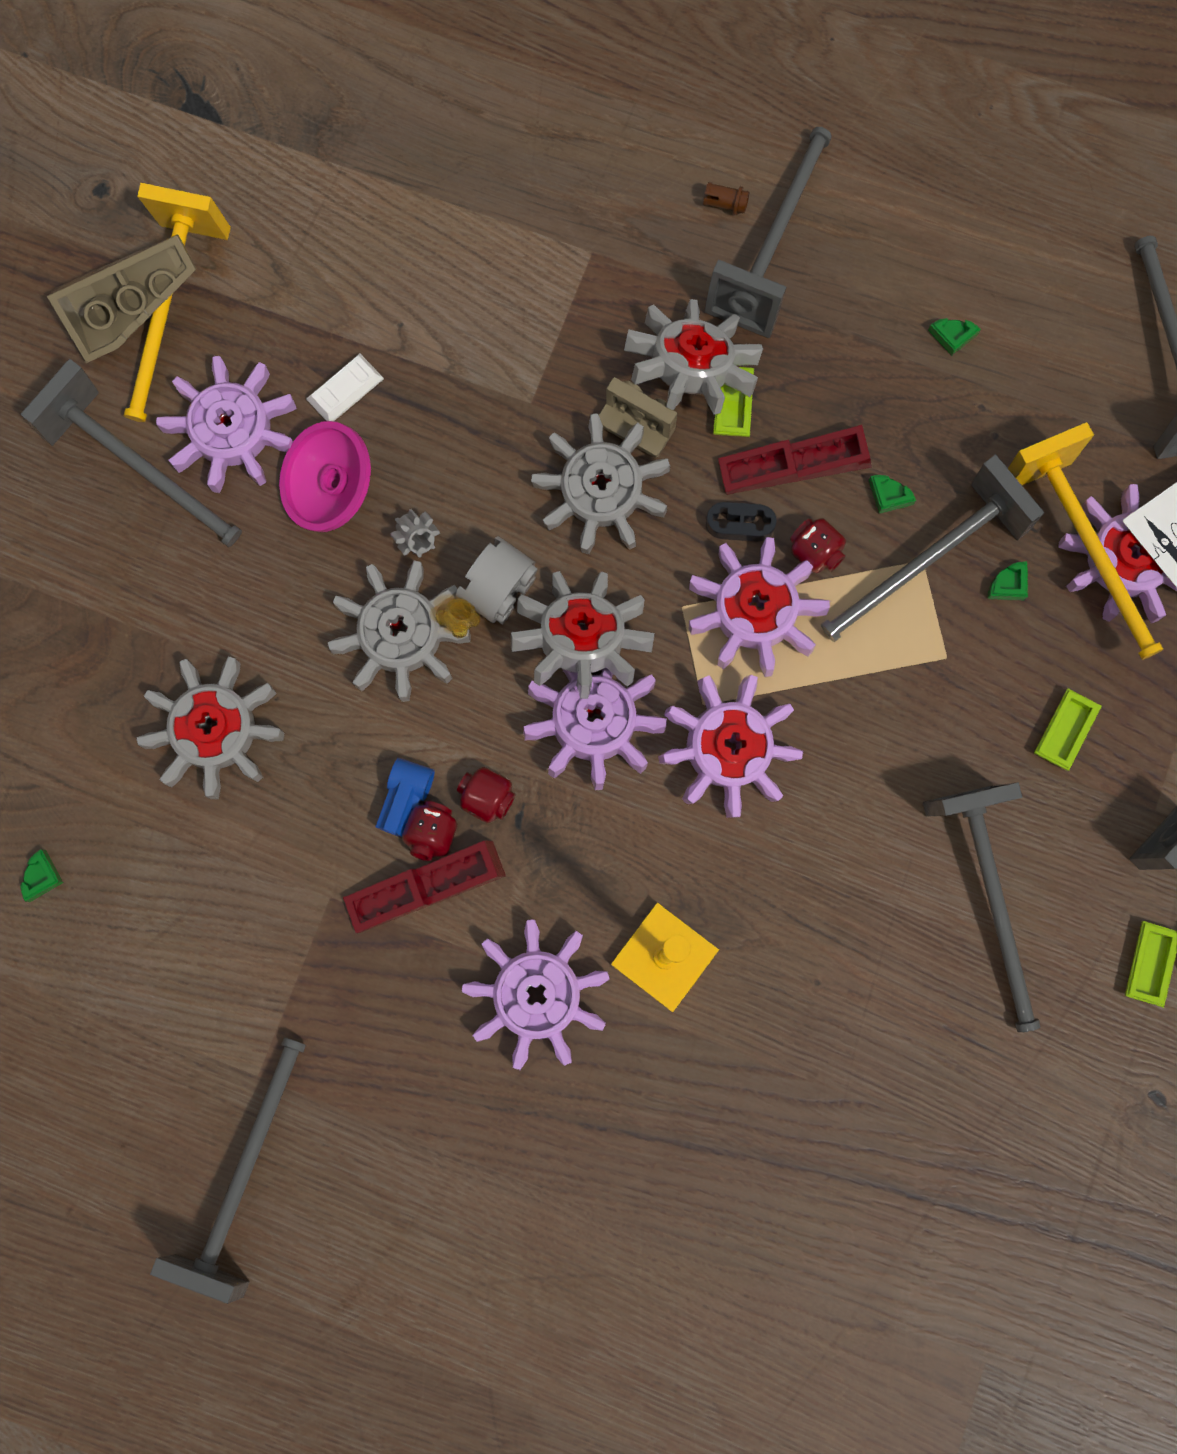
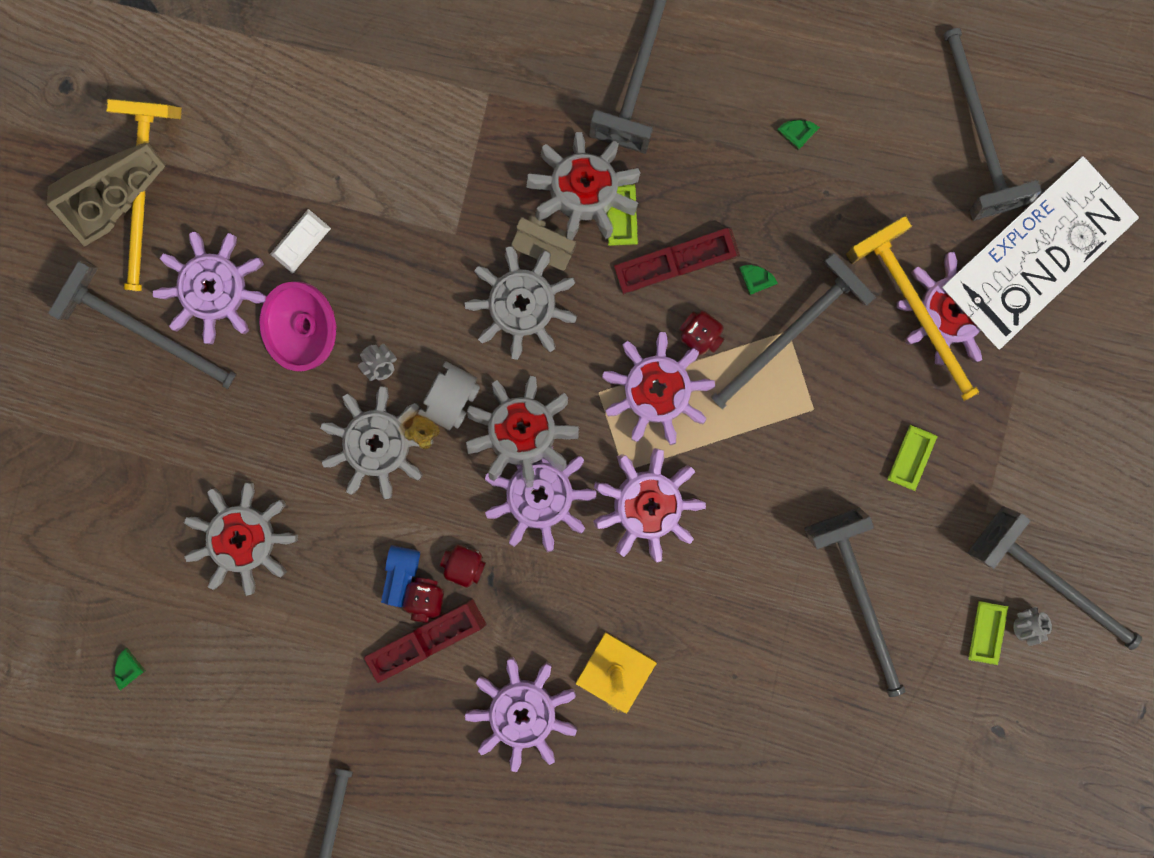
camera: 10 degrees left, 10 degrees up
(726, 198) = (596, 33): reddish brown pin -> none
(743, 513) = (639, 325): black beam -> none
(1010, 583) = (859, 342): green tile -> none

